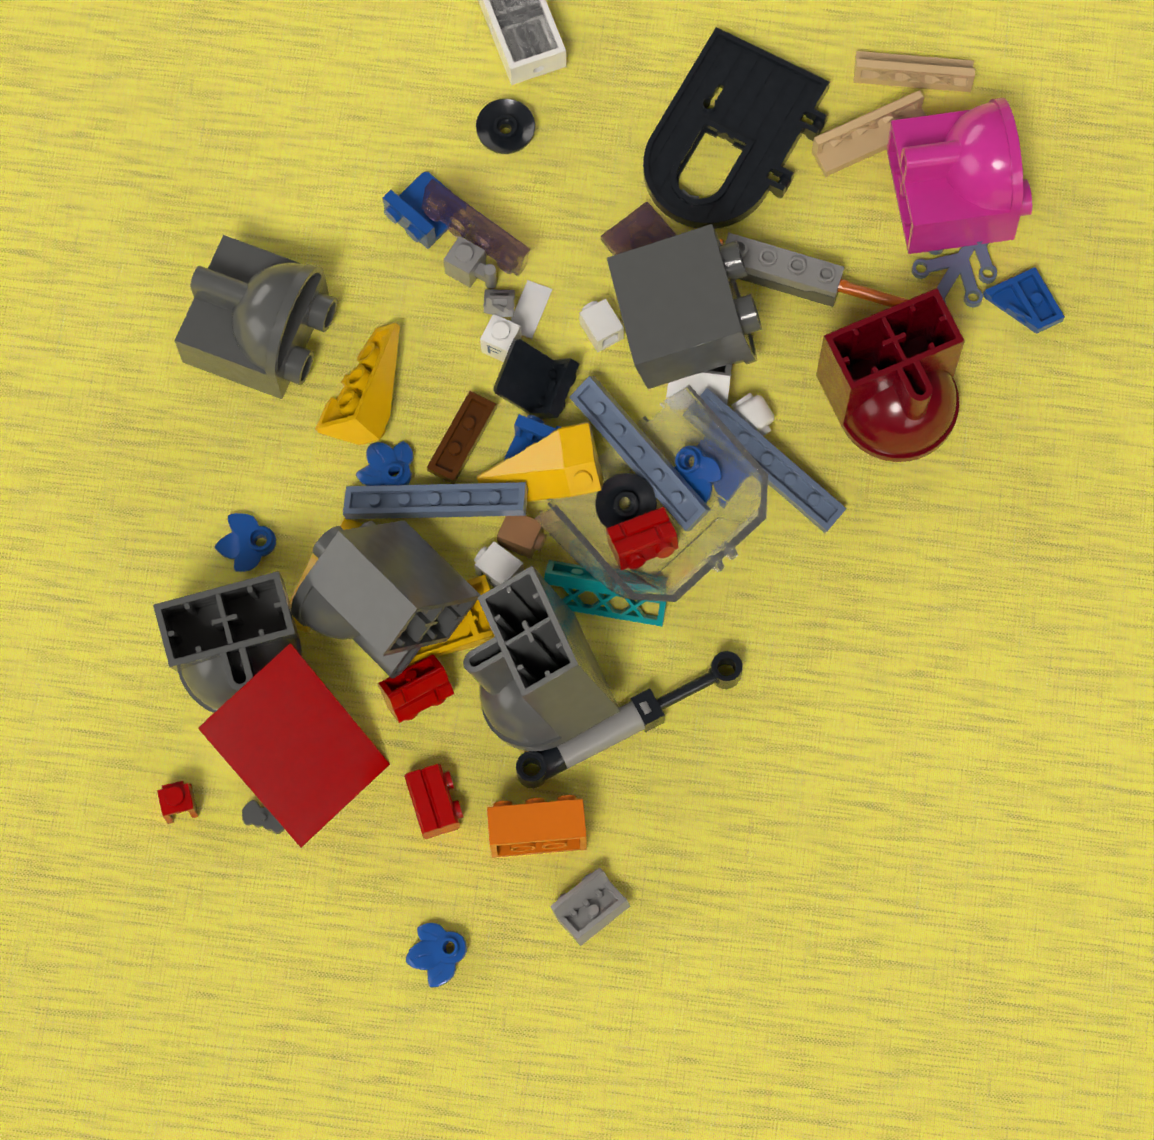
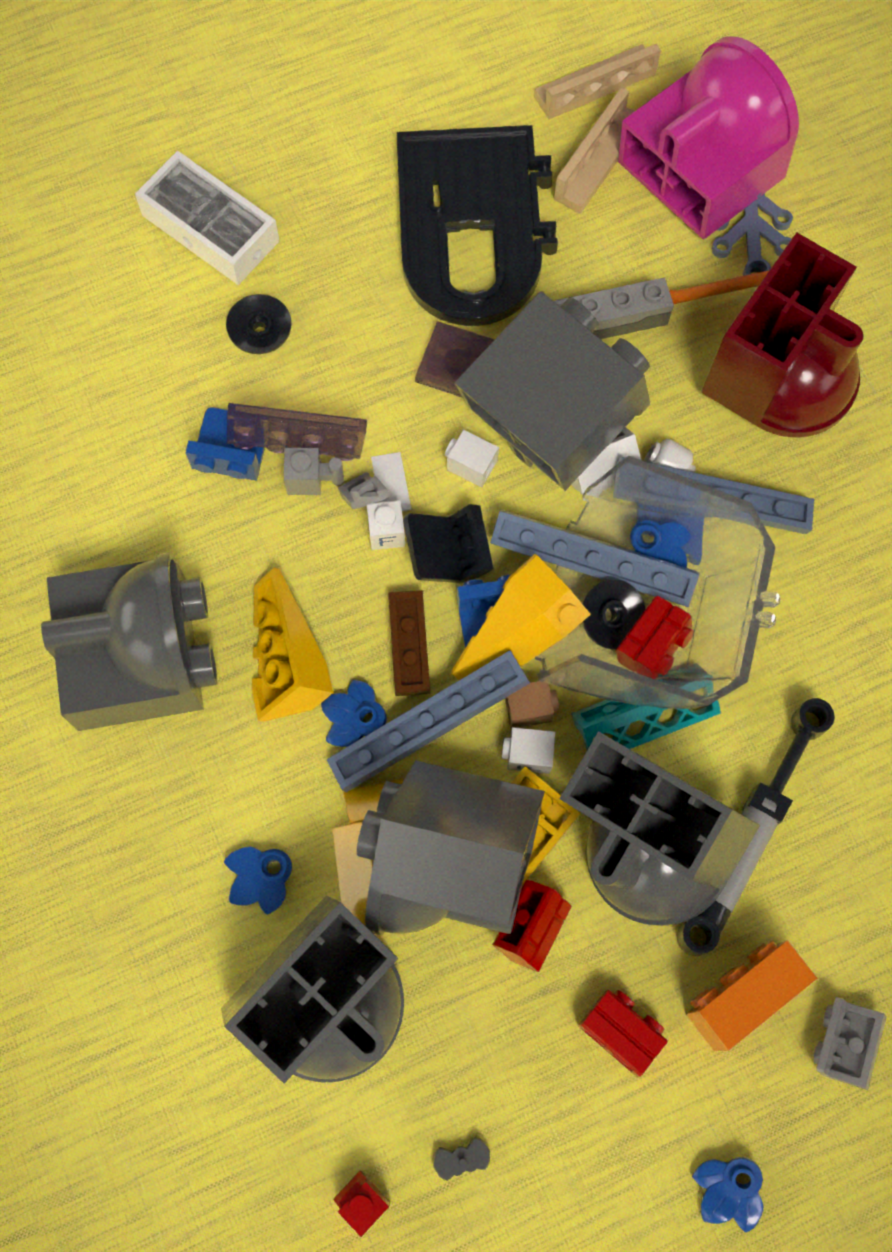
camera: 35 degrees left, 0 degrees up
(294, 745) = (455, 1072): red sticker -> none
(1026, 300) = (837, 222): blue wing -> none

